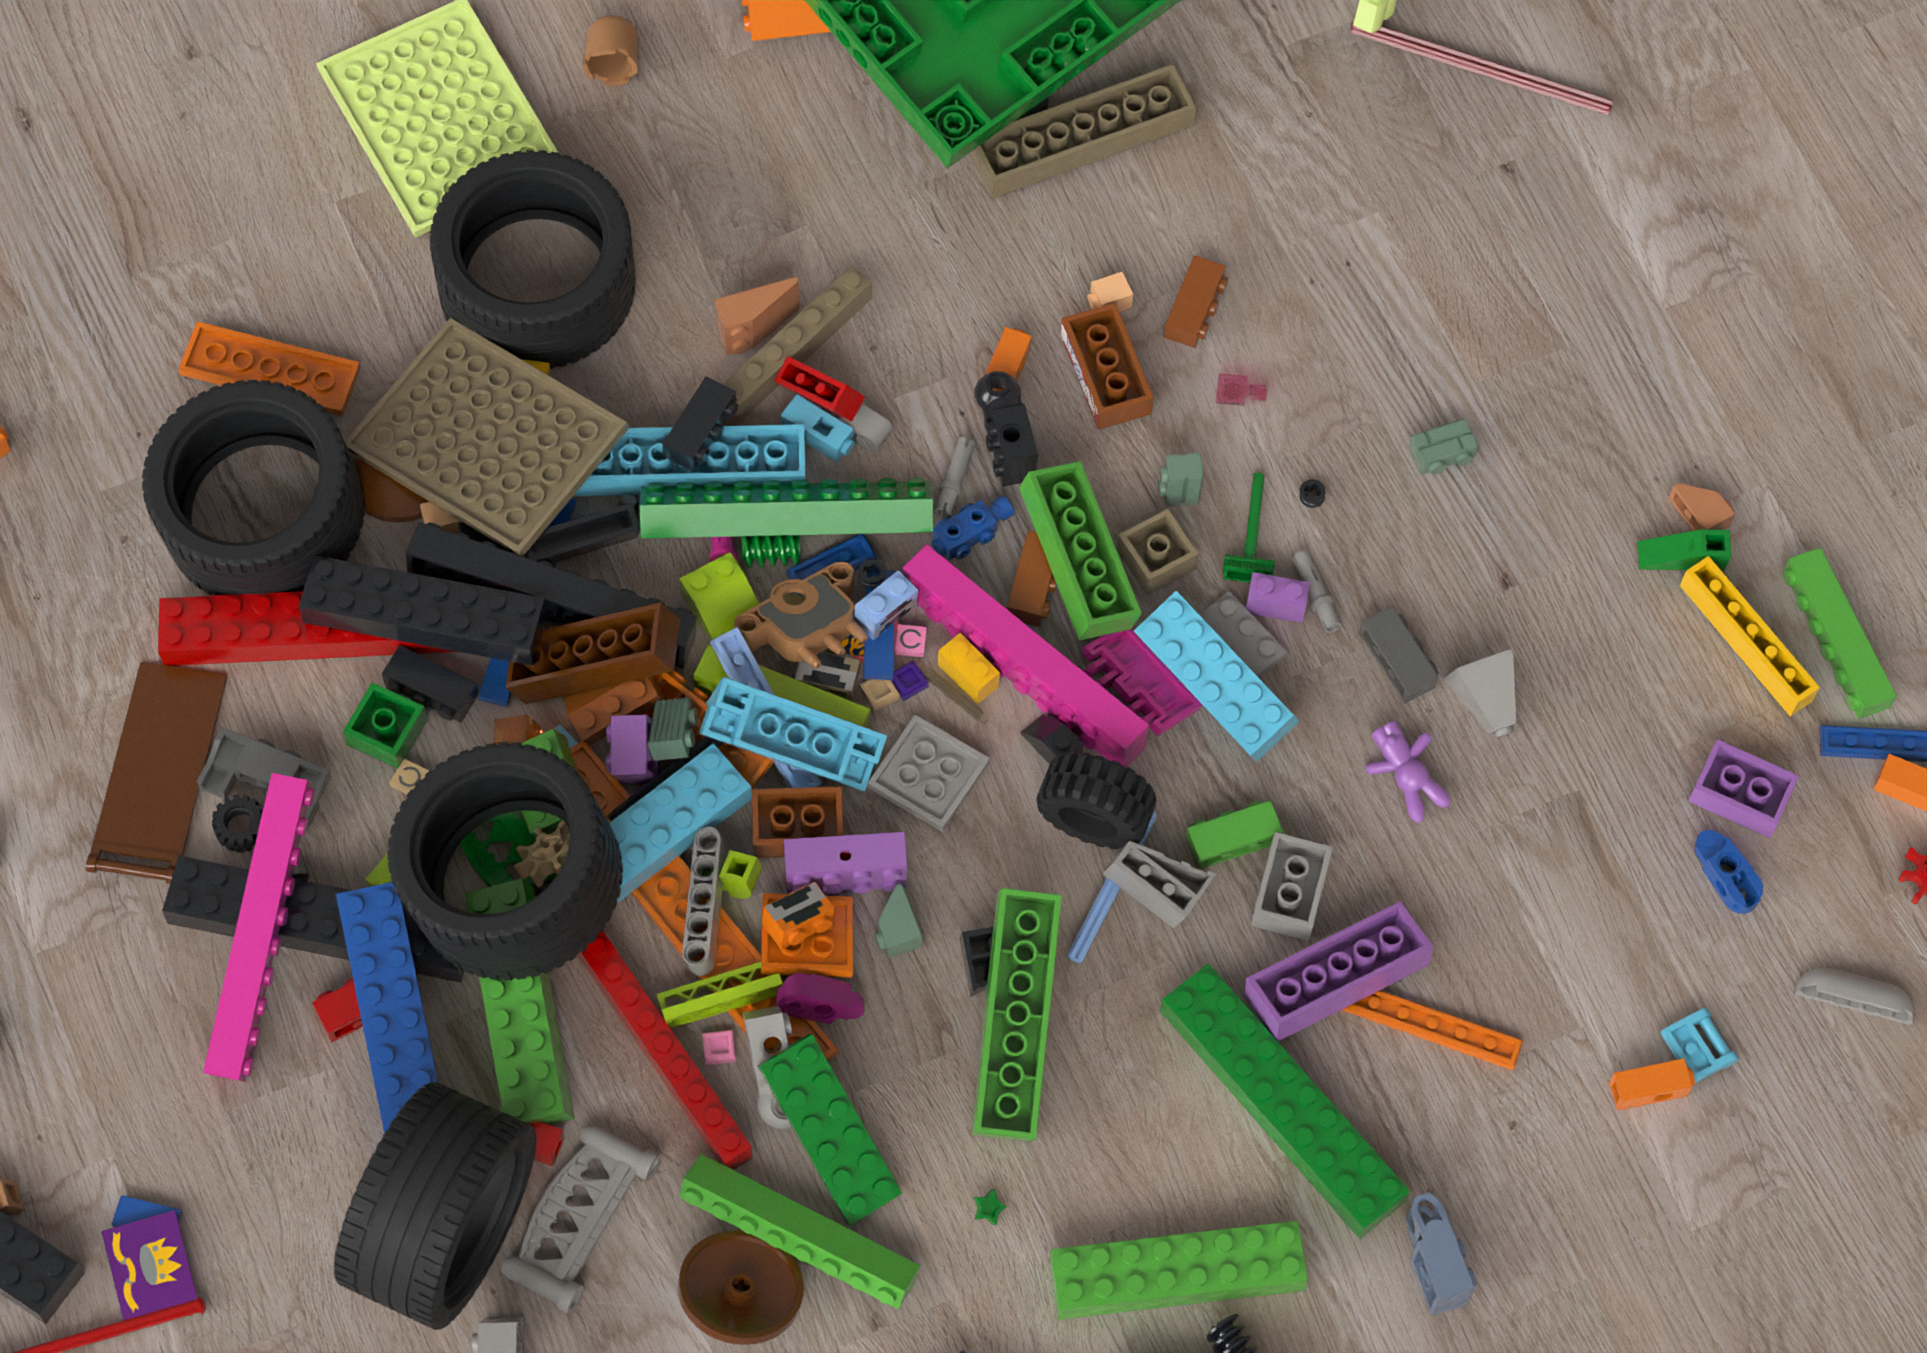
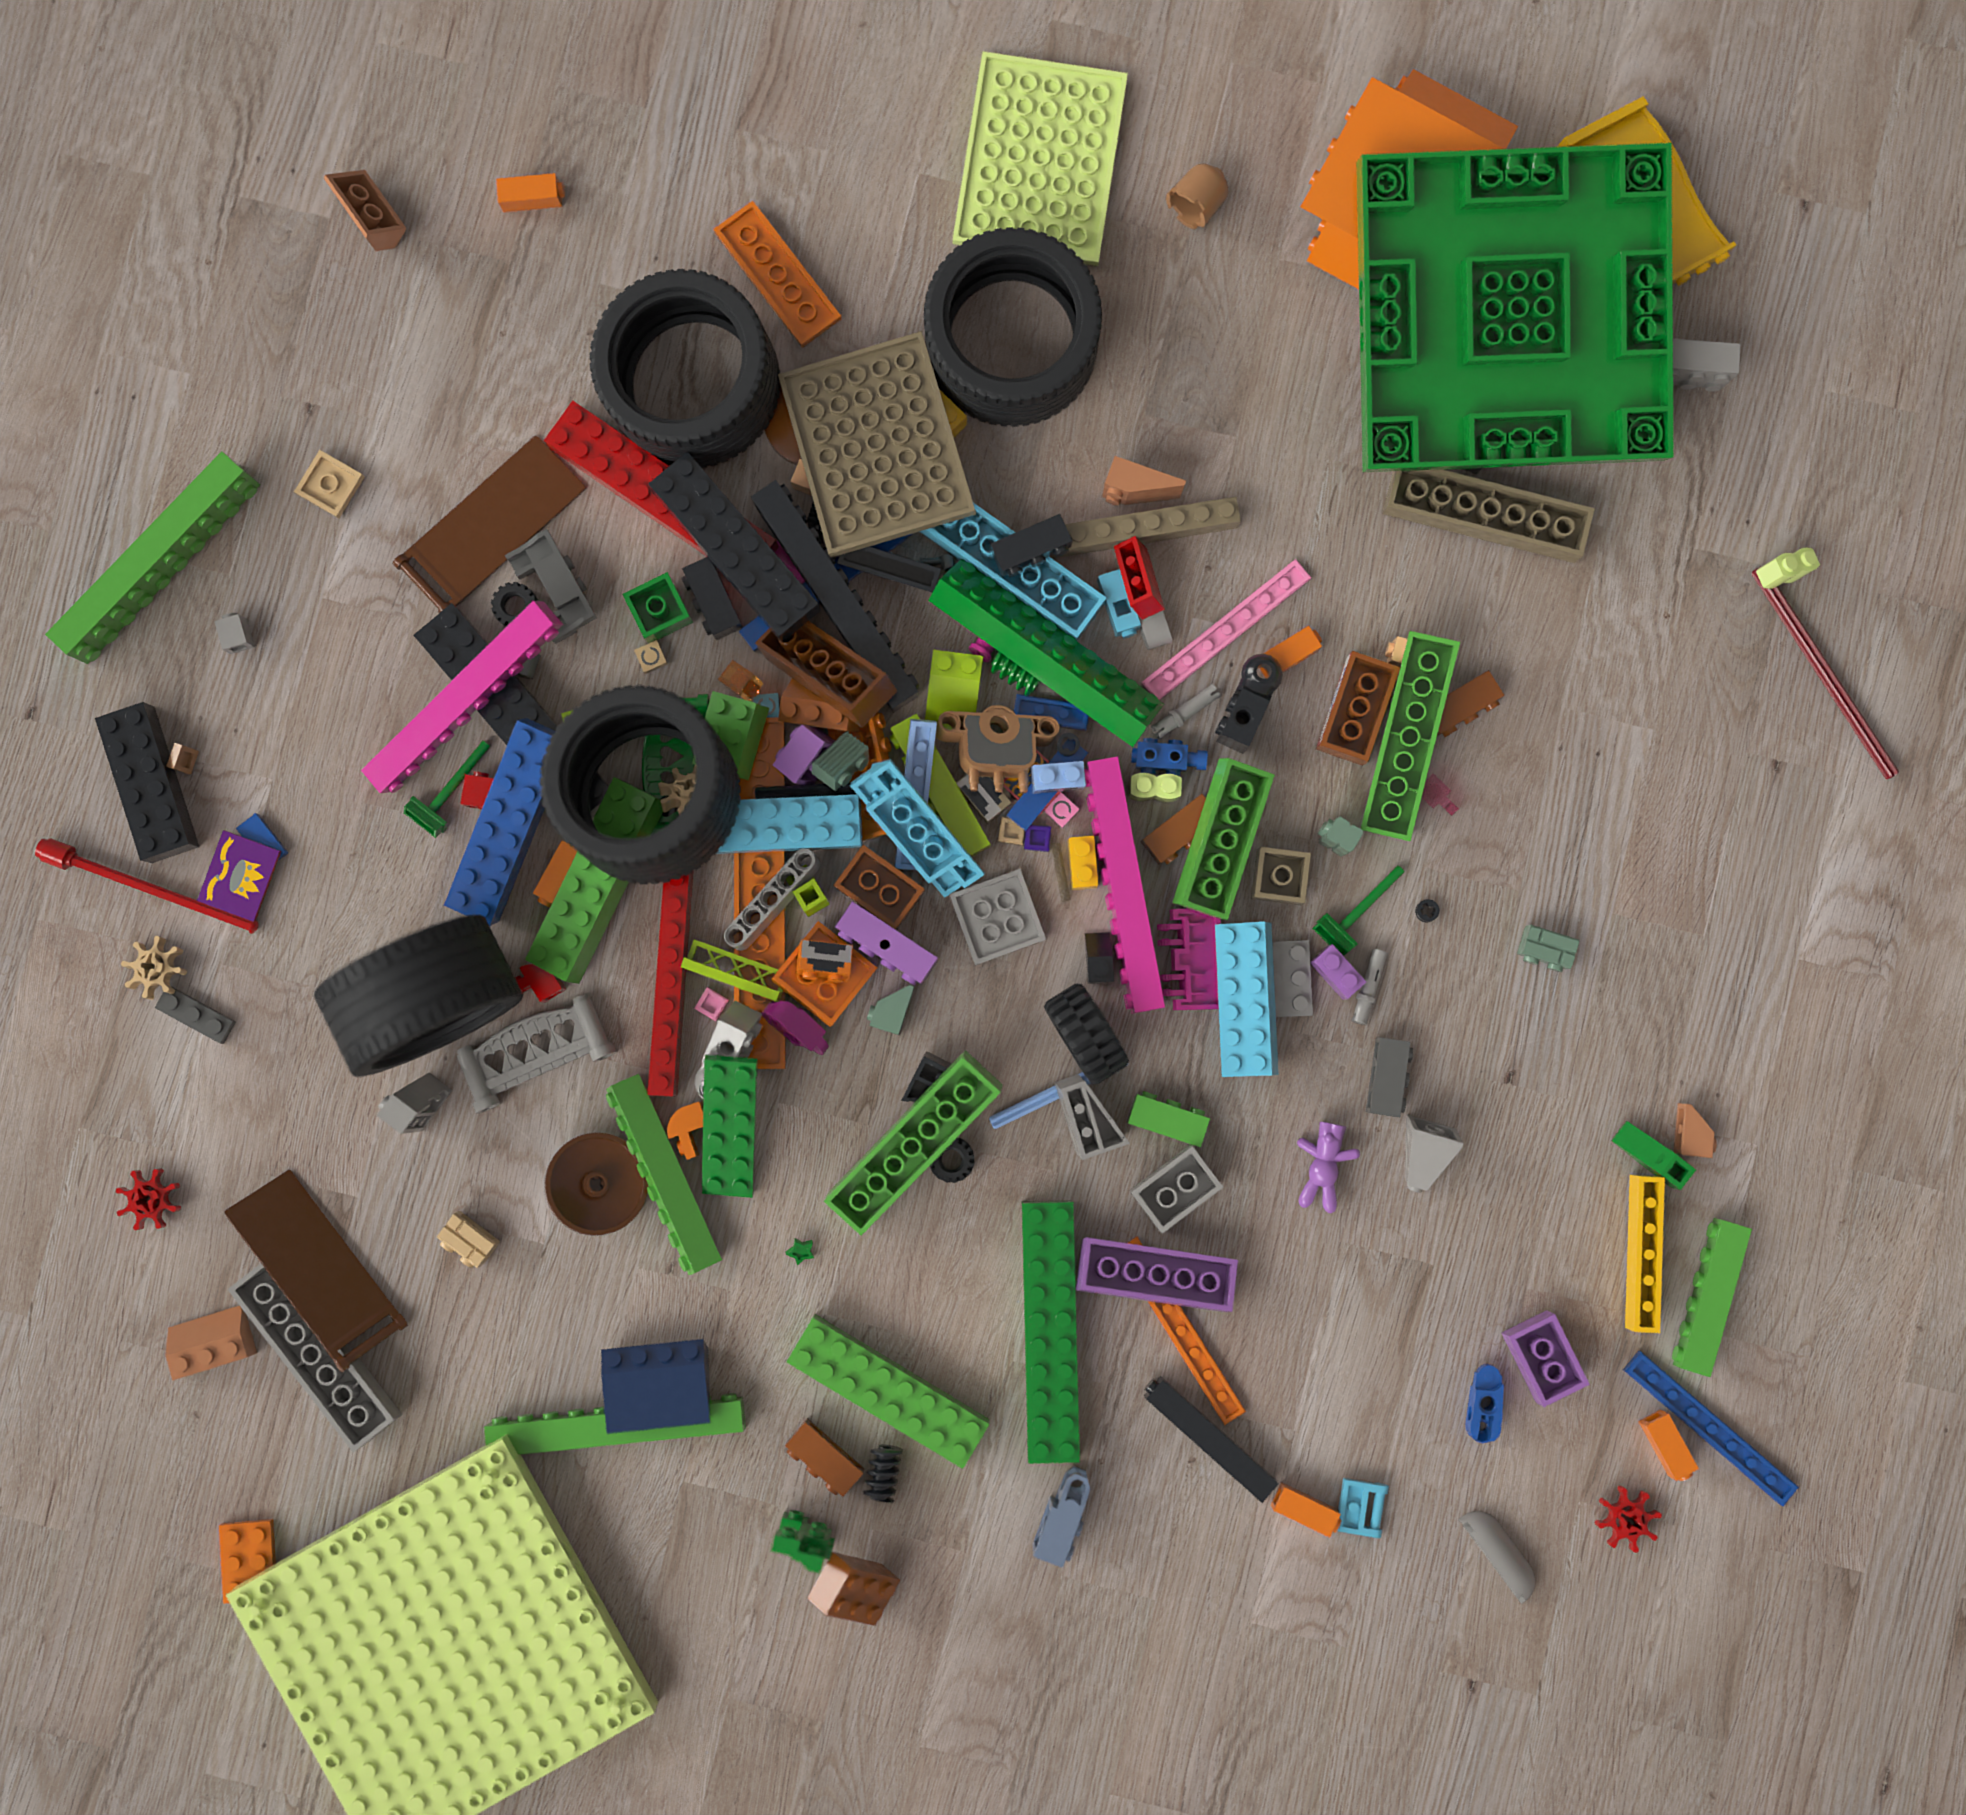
camera: 40 degrees right, 20 degrees up
(300, 1073) = (427, 816): none -> green piece
(474, 1033) = (555, 874): none -> orange brick
(781, 1172) = (682, 1124): none -> orange brick
(934, 384) = (1226, 630): none -> bright pink tile
(984, 557) = (1161, 788): none -> yellowish green brick
(1082, 1018) = (962, 1171): none -> black tyre
(1172, 351) = (1410, 735): none -> bright green brick
(1511, 1086) = (1210, 1438): none -> black brick

